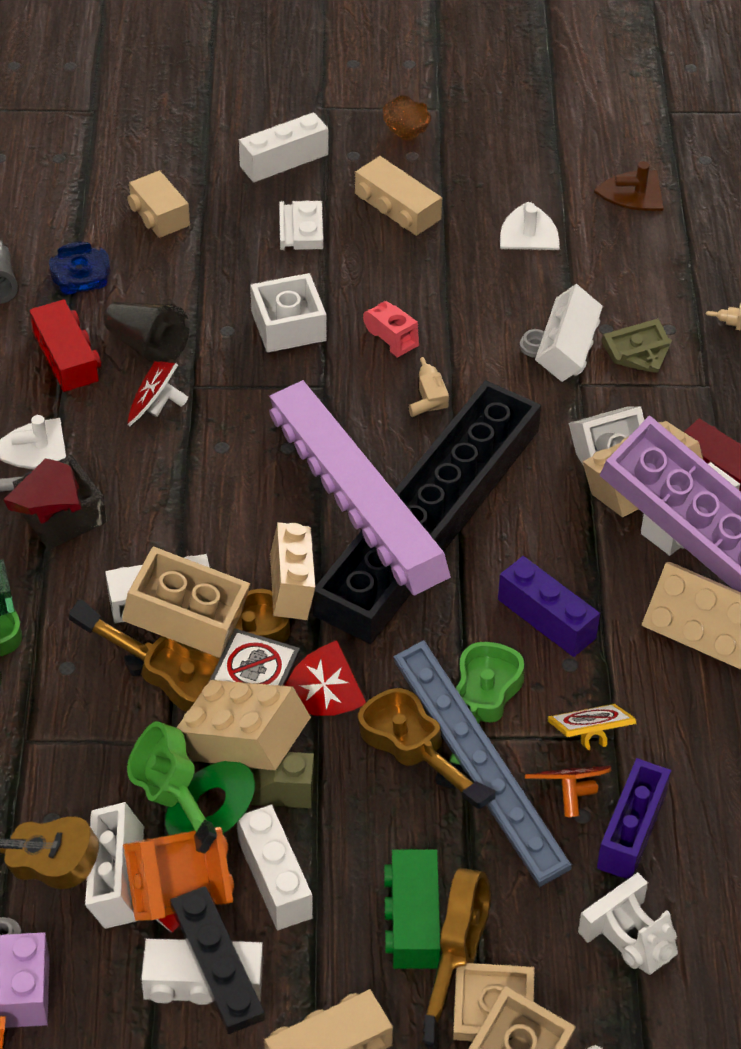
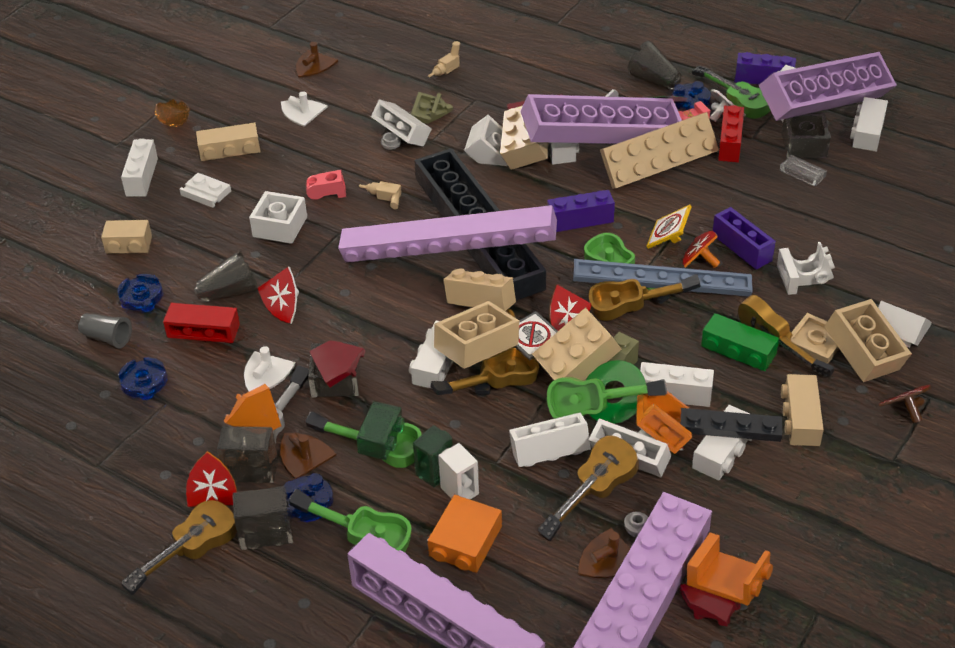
camera: 55 degrees left, 5 degrees down
(74, 769) = (550, 440): none -> white brick

